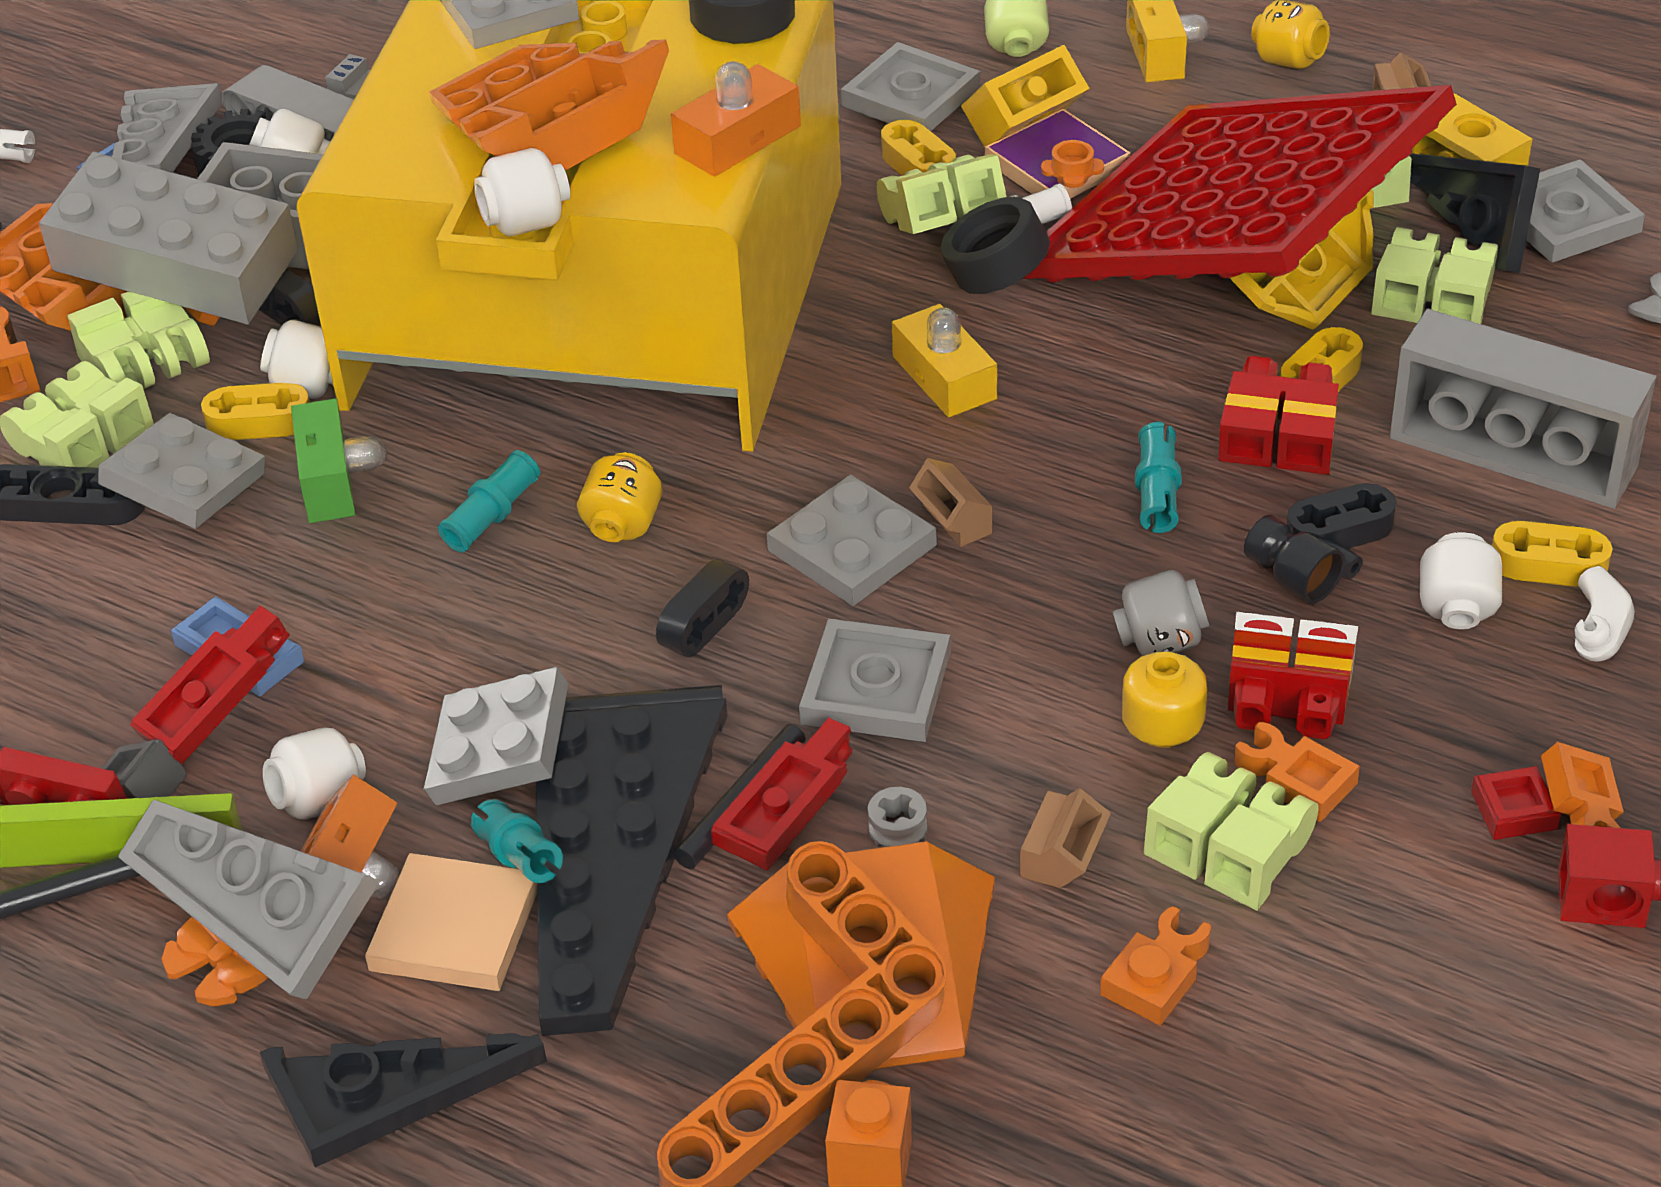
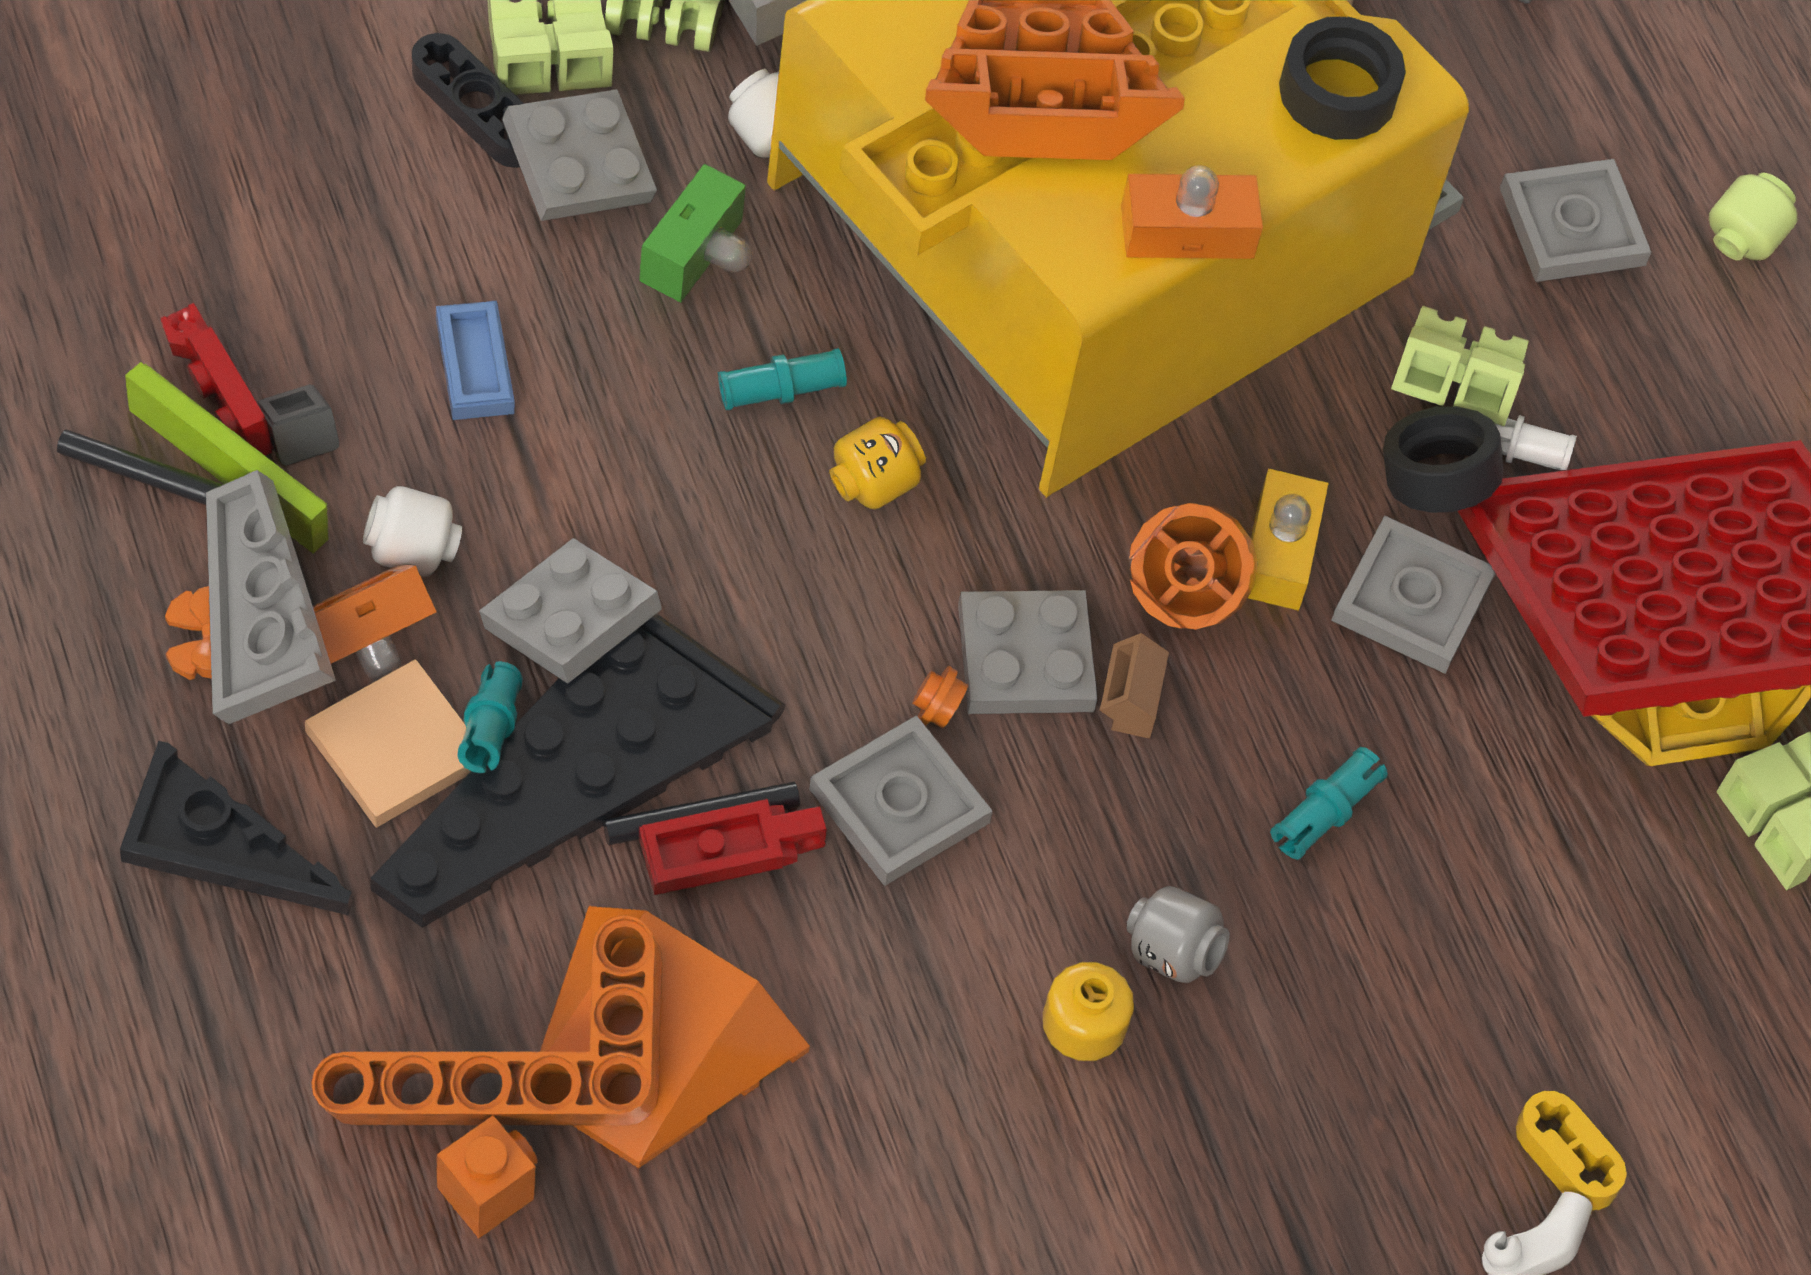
camera: 30 degrees right, 15 degrees up
(211, 684) = (410, 388): red hinge -> none
(252, 410) = (701, 131): yellow beam -> none
(521, 192) = (932, 160): white head -> none
(702, 607) = (838, 621): black beam -> none
(828, 598) = (939, 697): none -> orange plate
(891, 803) = (779, 949): light grey bush -> none
(912, 146) = (1516, 301): yellow beam -> none
(915, 397) = (1192, 566): none -> orange cylinder
(1025, 95) = (1650, 317): yellow brick -> none
(1027, 148) = (1626, 400): dark purple tile -> none
(1062, 838) = (887, 1058): medium nougat piece -> none
(1064, 332) = (1414, 594): none -> light grey plate
(1072, 163) = (1612, 413): orange plate -> none
(1156, 973) = (835, 1227): orange plate -> none
(1207, 825) = (993, 1149): yellowish green legs -> none
(1262, 398) = (1485, 836): red hips -> none
(1302, 560) = (1349, 986): black piece -> none
(1302, 769) = (1128, 1169): orange plate -> none
(1310, 691) = (1220, 1073): red hips -> none
(1329, 346) = (1594, 804): yellow beam -> none
(1346, 515) = (1436, 969): black beam -> none
(1462, 579) = (1453, 1112): white head -> none
(1521, 407) = (1688, 1000): light grey brick -> none

